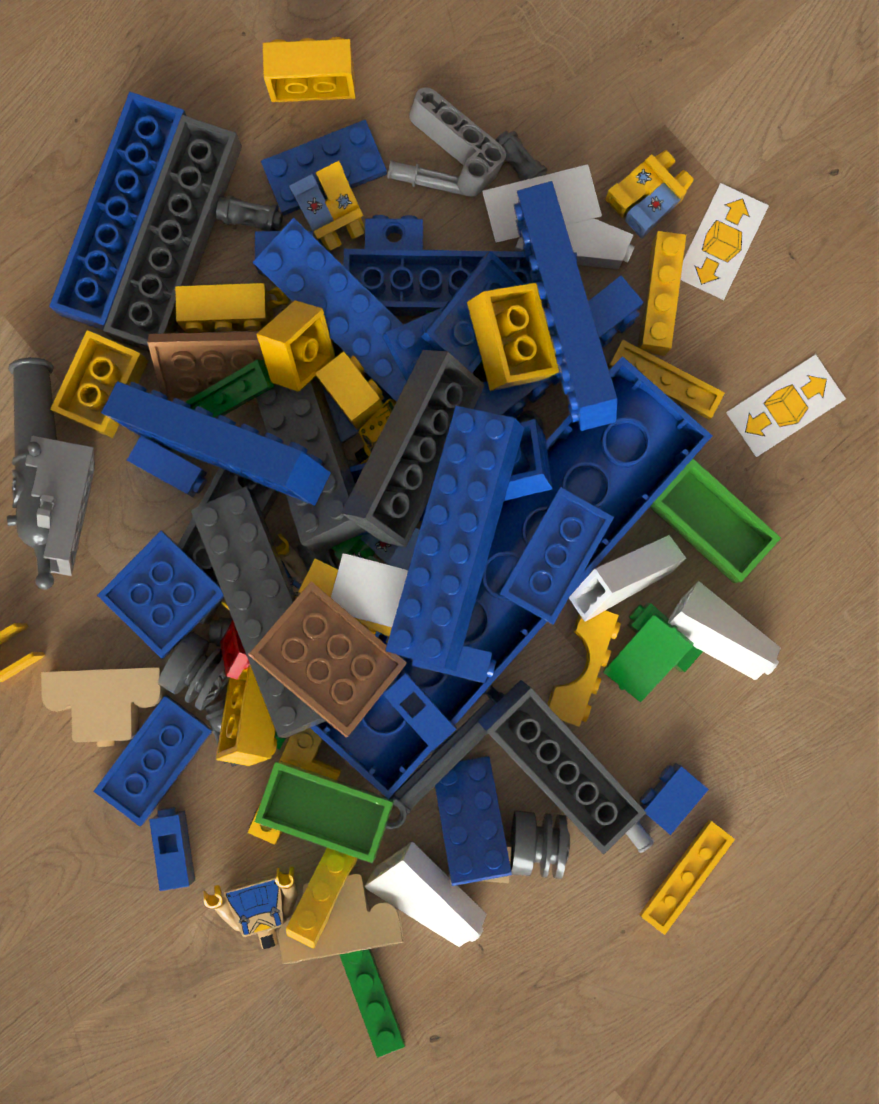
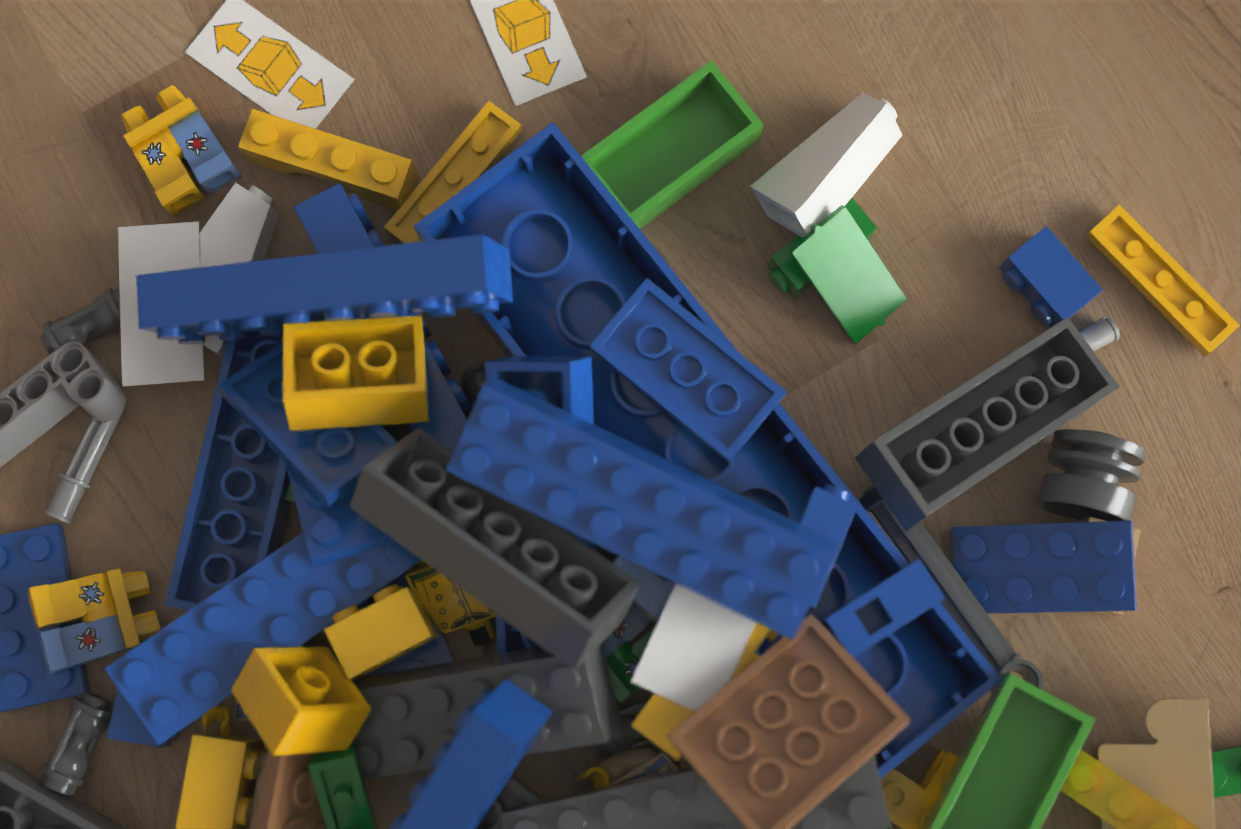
camera: 80 degrees left, 5 degrees down
(381, 227) = (149, 507): blue brick -> none
(426, 894) = (1140, 653): white slope -> none
(572, 699) = (797, 342): yellow arch -> none
(626, 576) = (729, 282): white slope -> none

